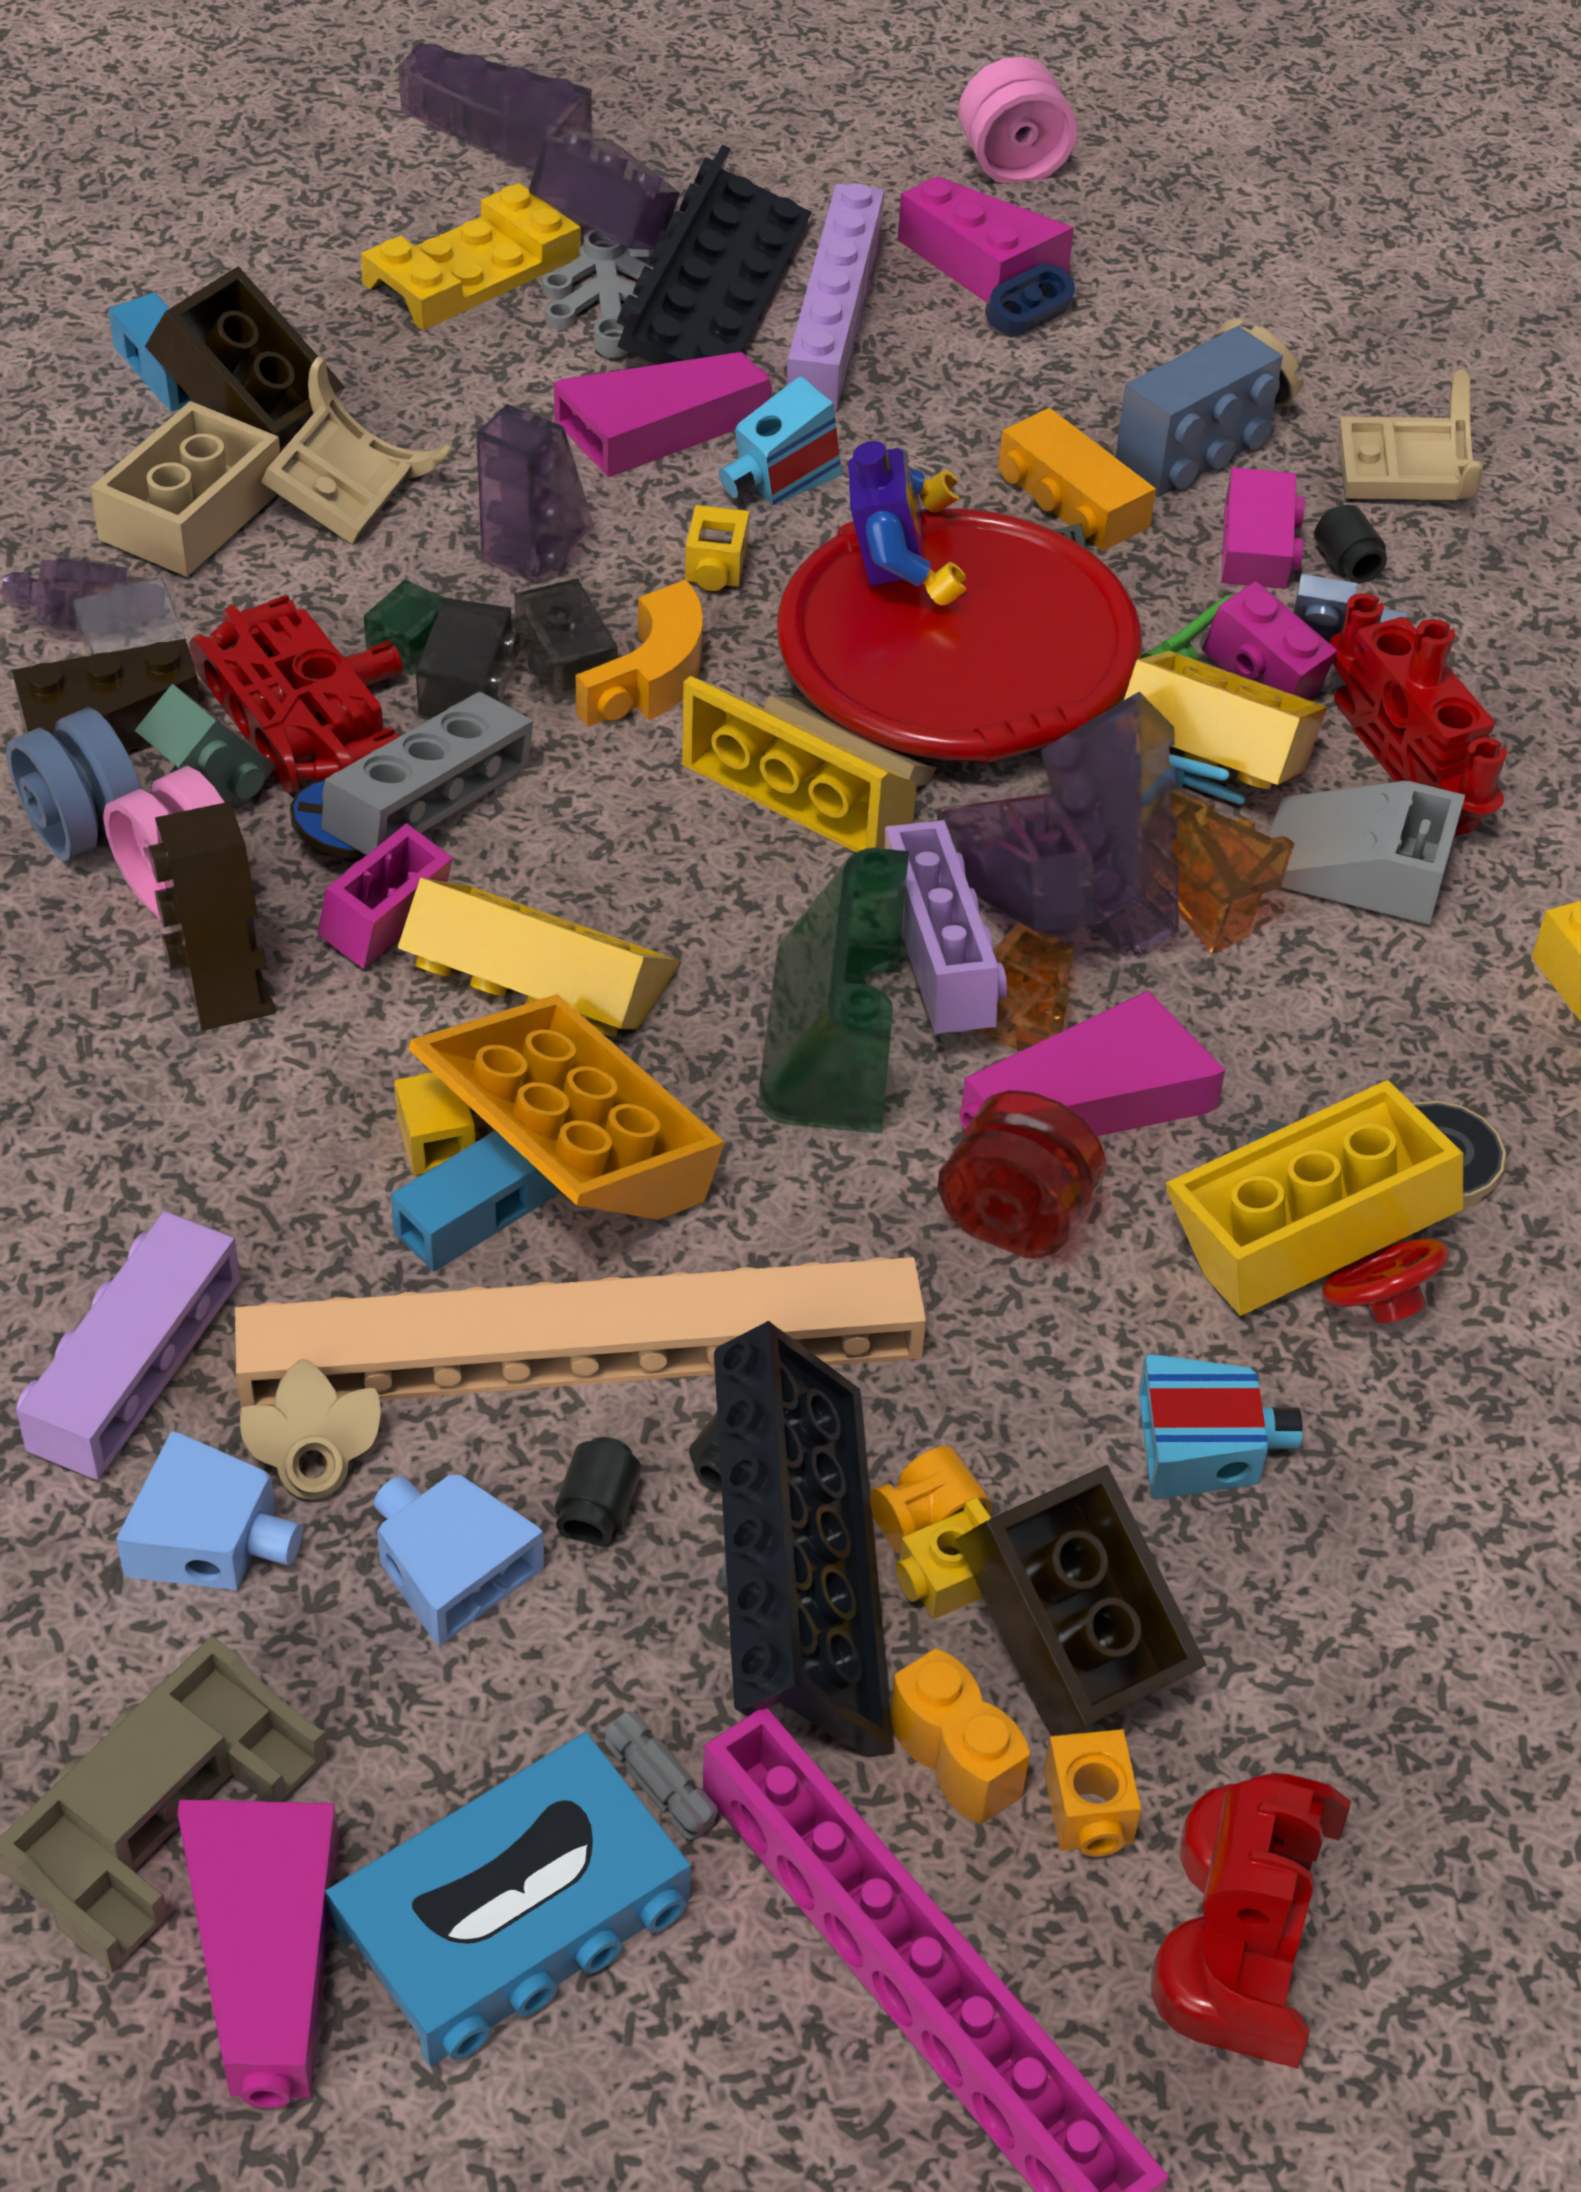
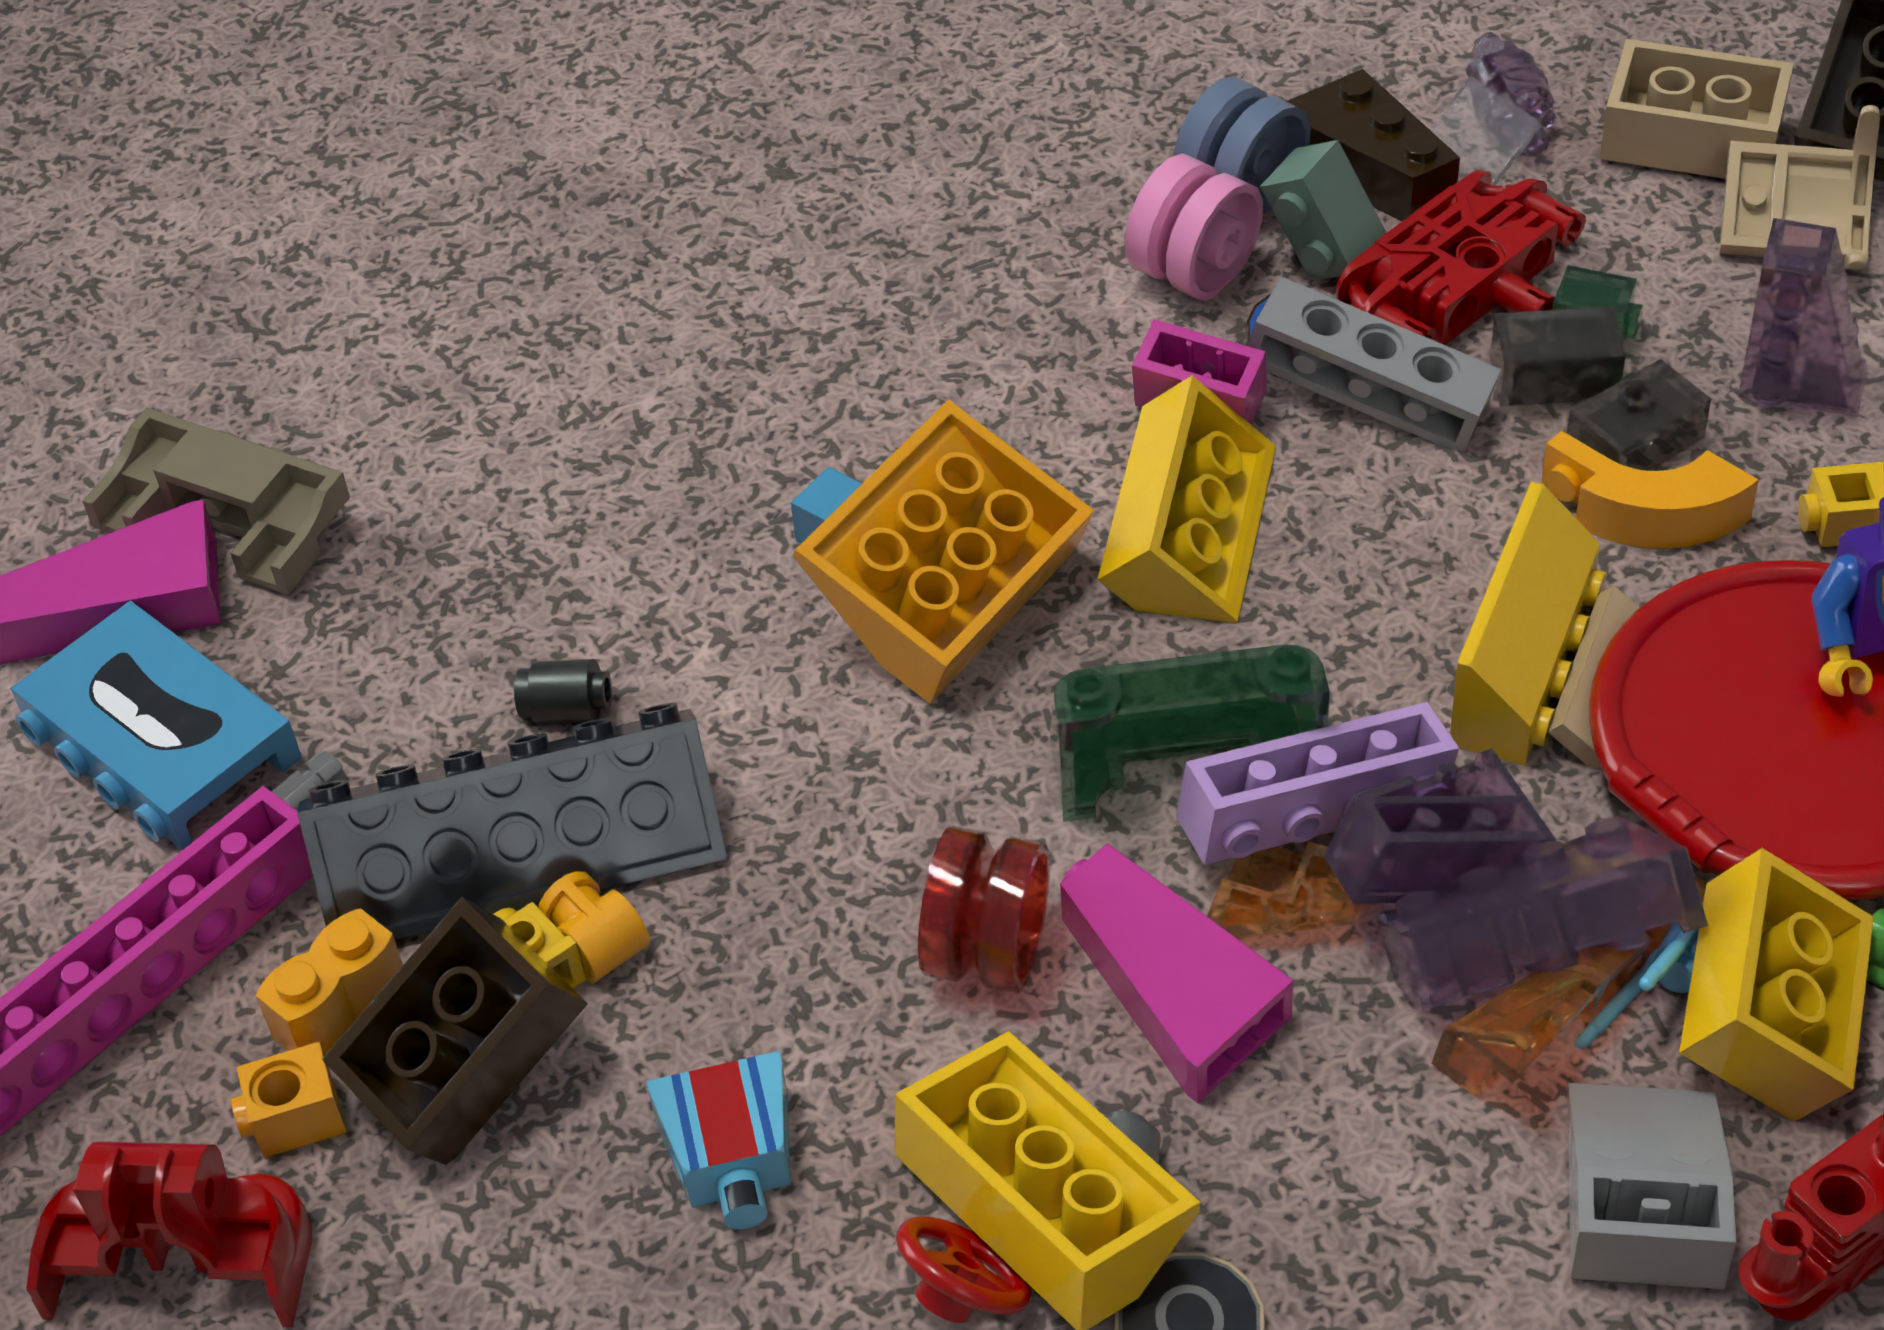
camera: 85 degrees right, 0 degrees up
(128, 1345) = (649, 357): lavender brick -> none
(203, 1519) = (487, 455): light blue torso -> none
(210, 914) = (1098, 264): dark brown wedge -> none
(313, 1419) = (577, 492): tan plate -> none
(453, 1550) = (477, 610): light blue torso -> none
(578, 1329) = (739, 658): light nougat brick -> none

